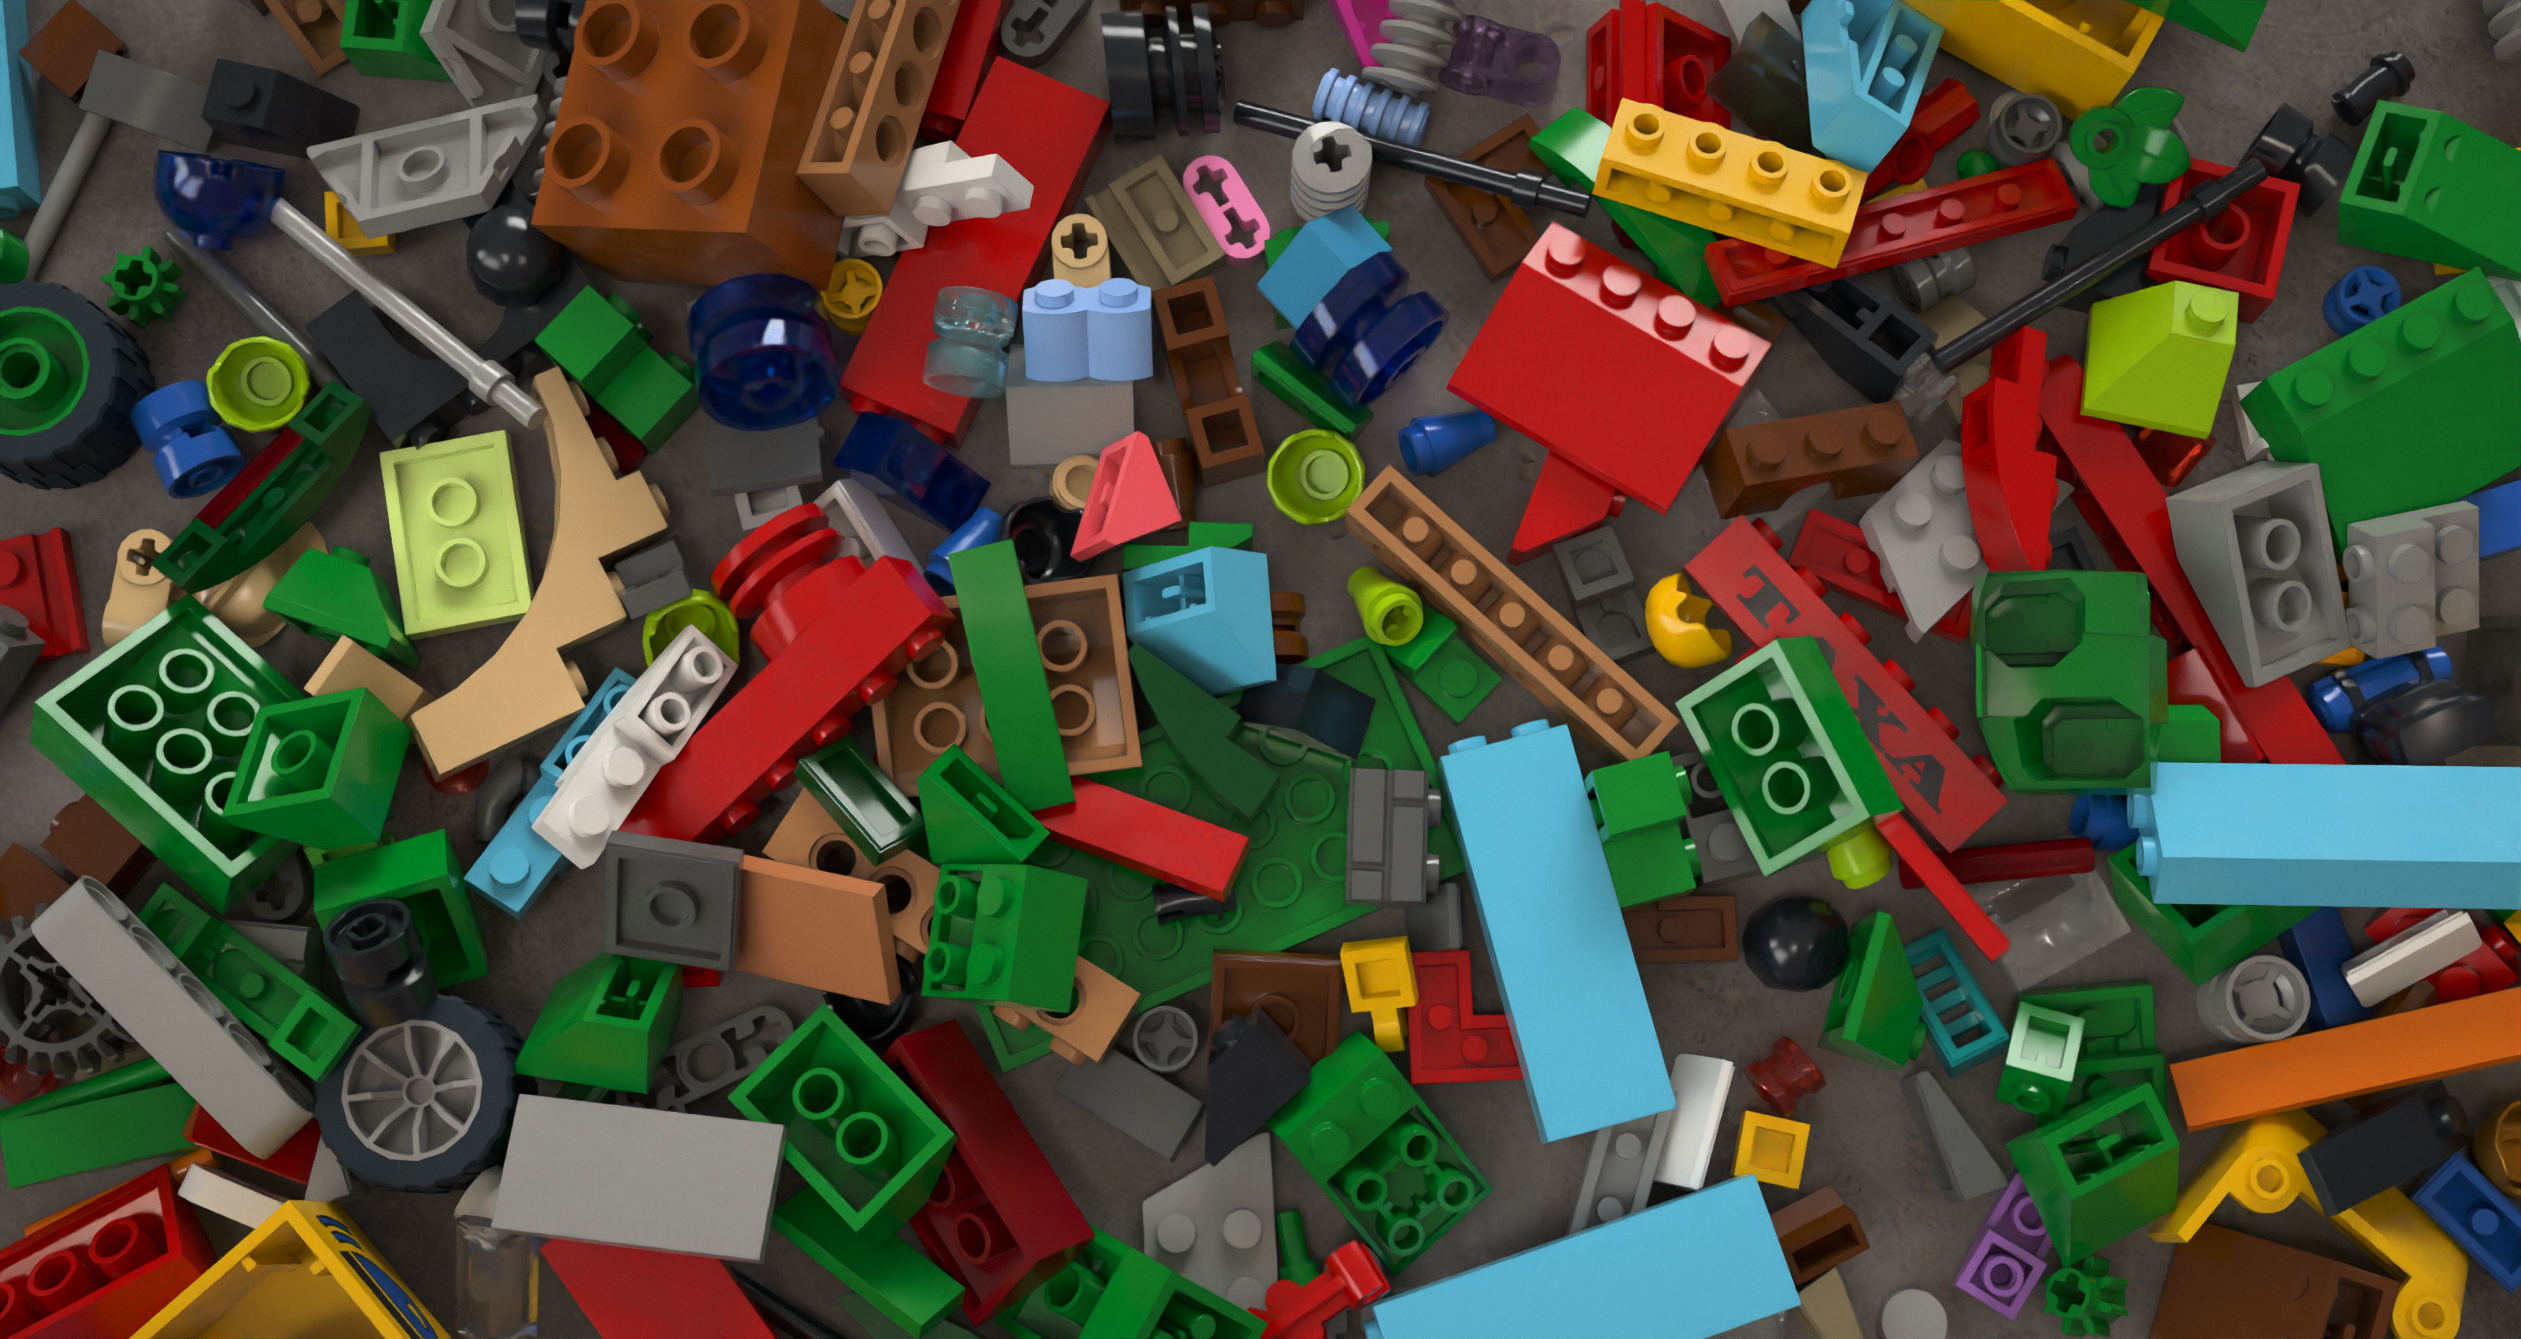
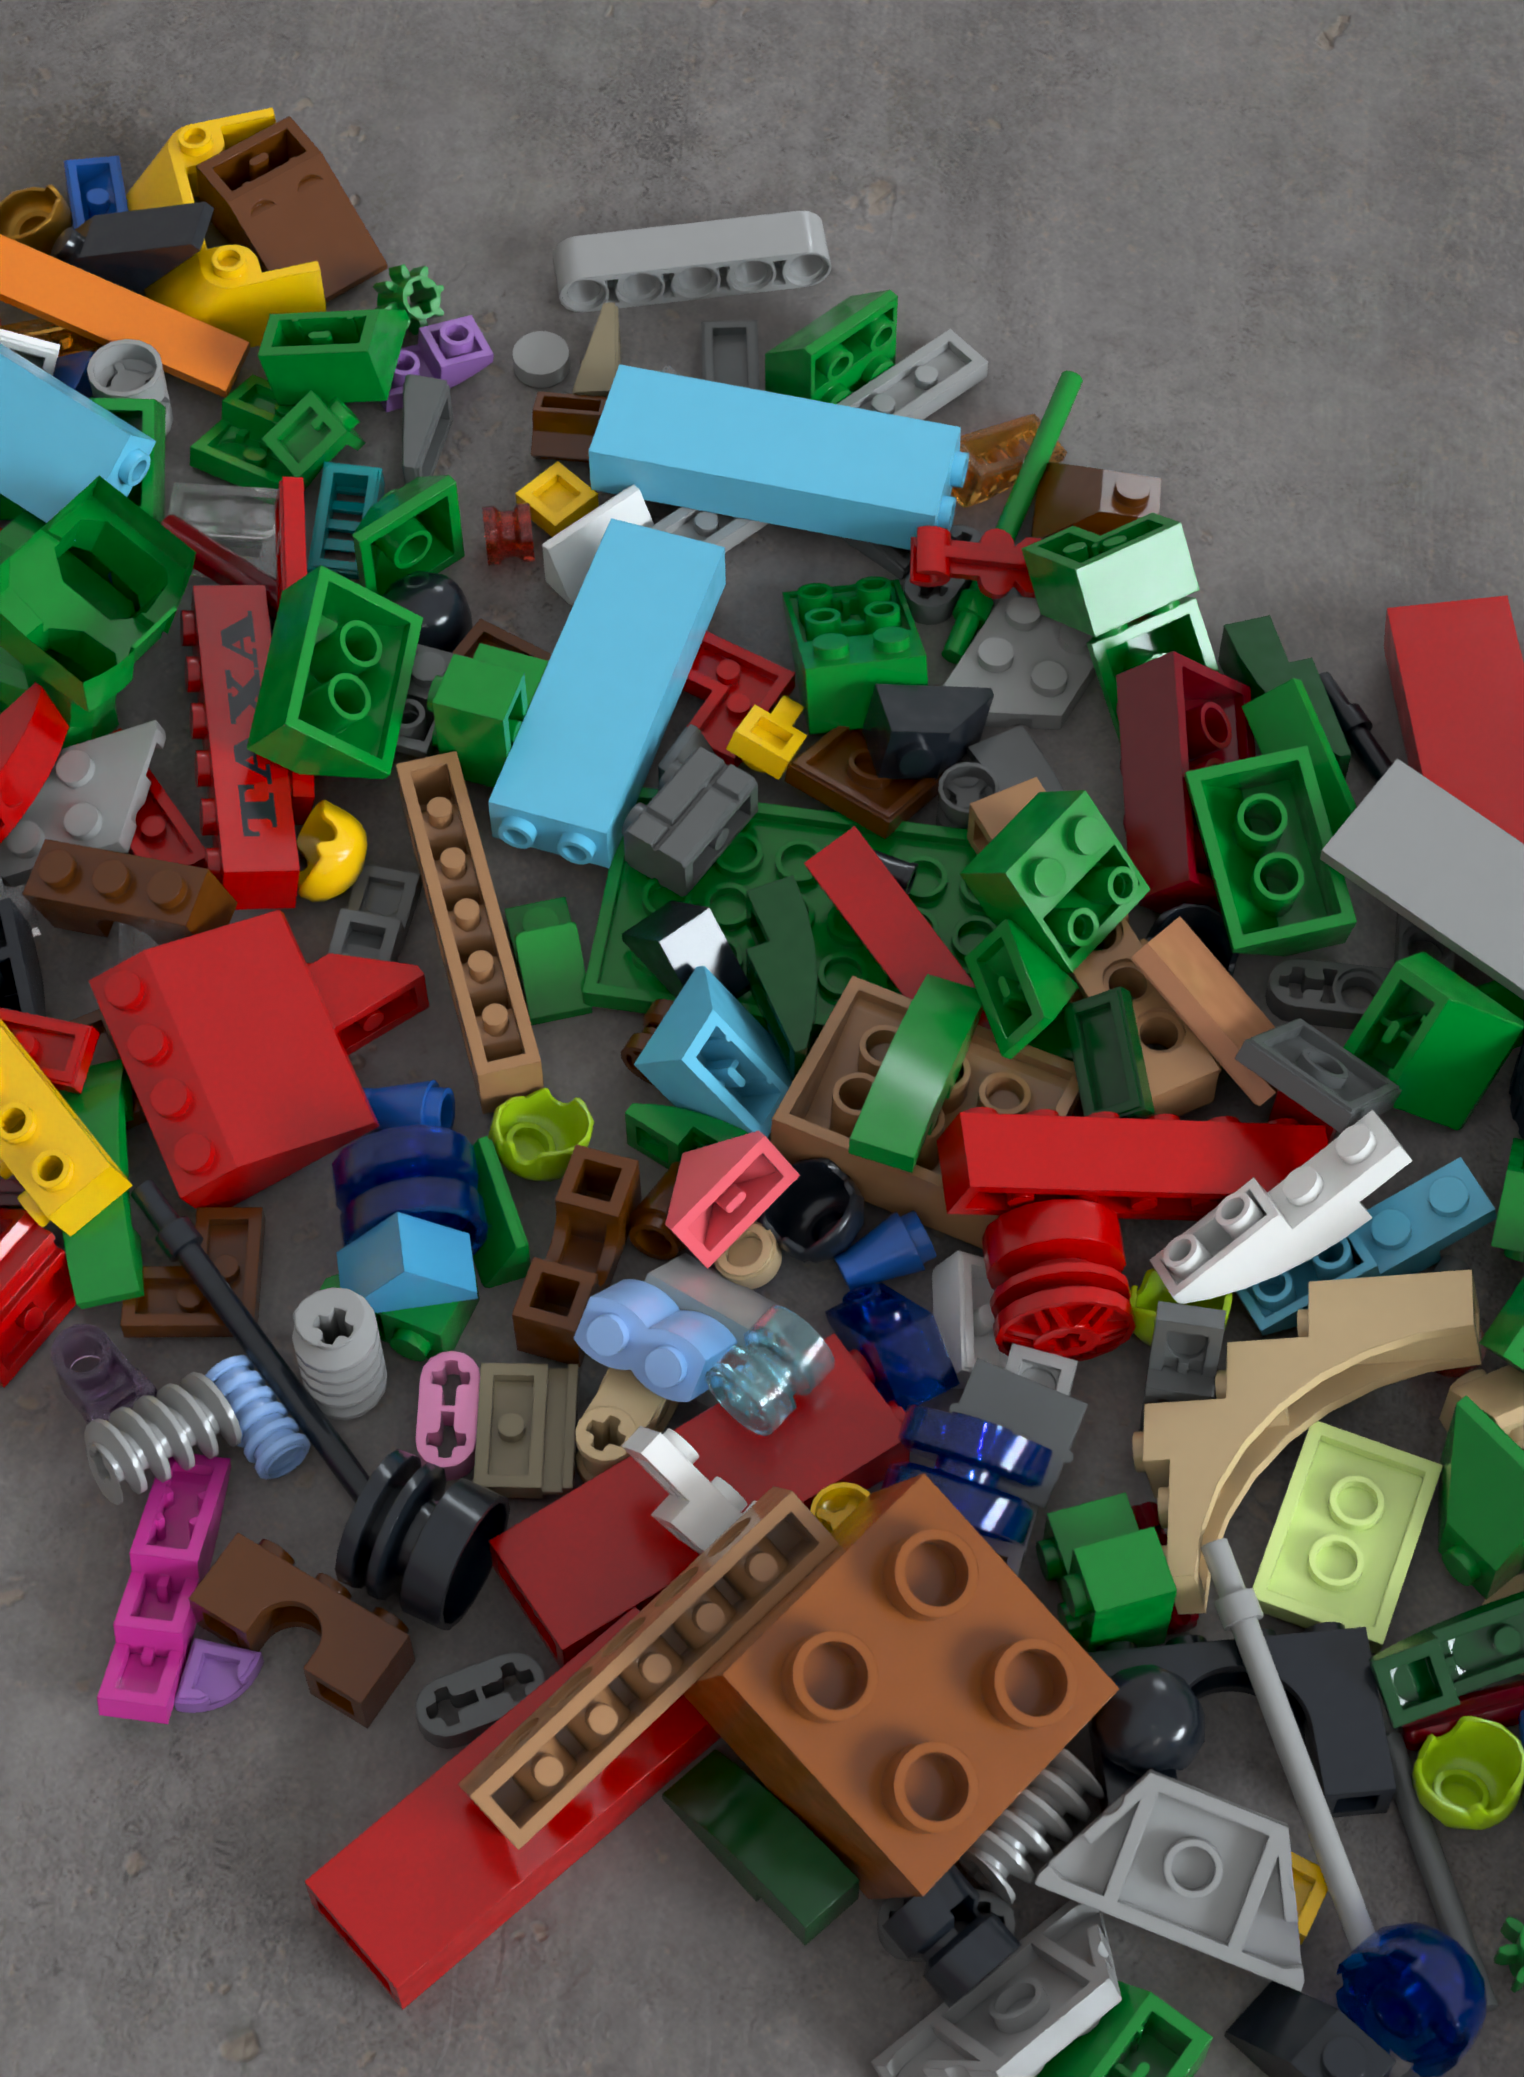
camera: 145 degrees left, 20 degrees down
(1387, 608) = (560, 1000): lime cone -> none

